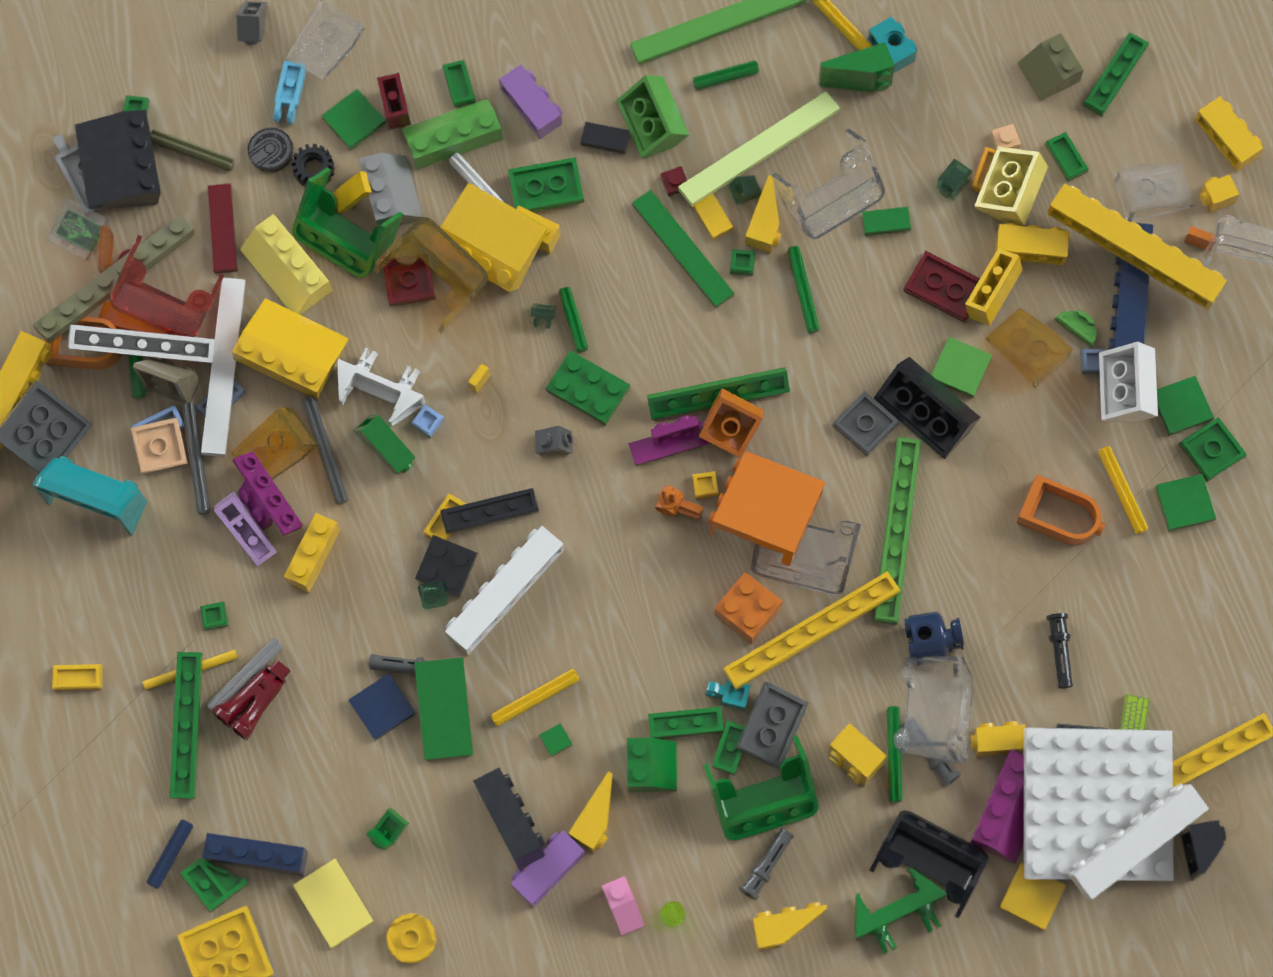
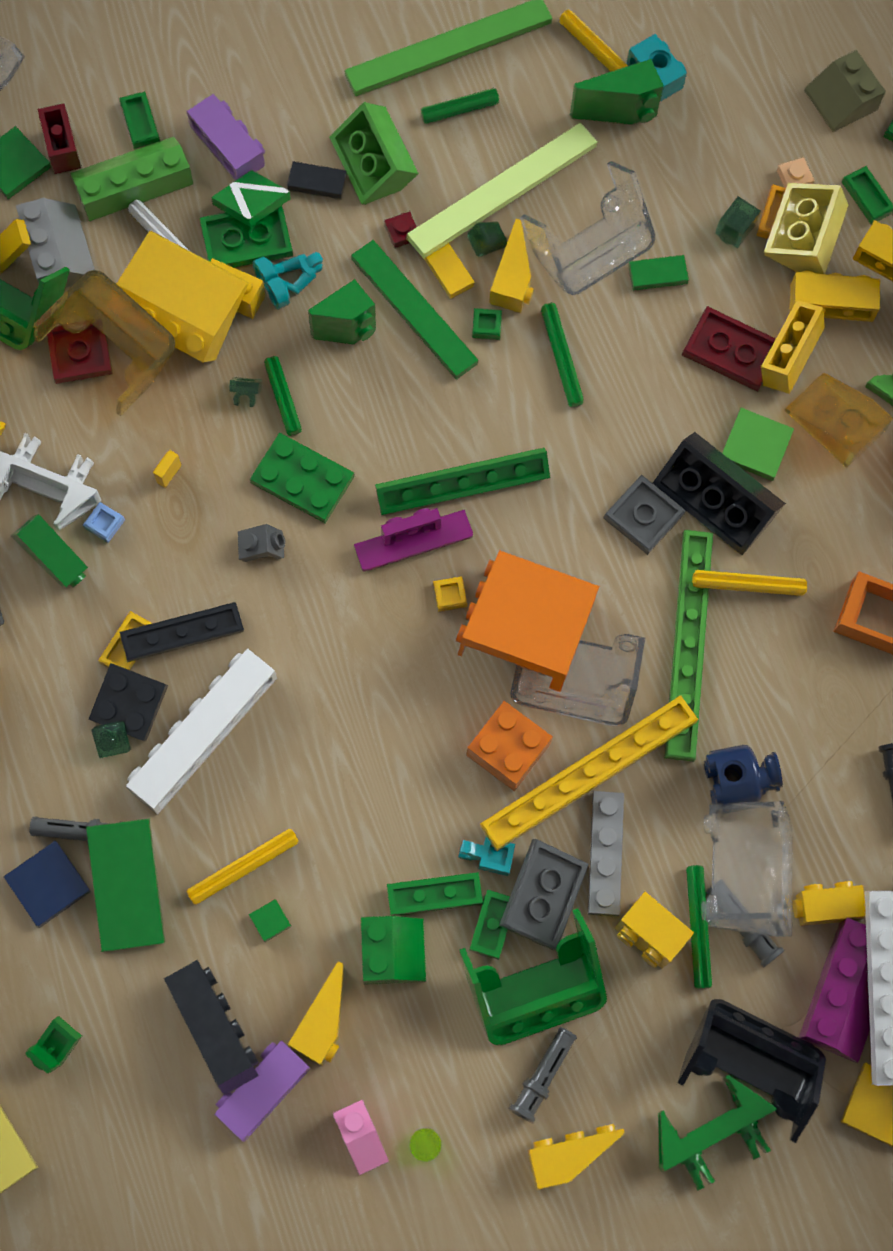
camera: 10 degrees left, 0 degrees up
(411, 938) = (86, 1189): yellow tile -> none
(550, 153) = (251, 198): none -> green tile
(571, 230) = (276, 286): none -> teal piece
(625, 255) = (344, 316): none -> green slope
(672, 502) = (409, 616): orange axle -> none
(731, 423) = (480, 516): orange slope -> none
(823, 695) = (606, 853): none -> light grey plate
(948, 481) = (749, 582): none -> yellow axle

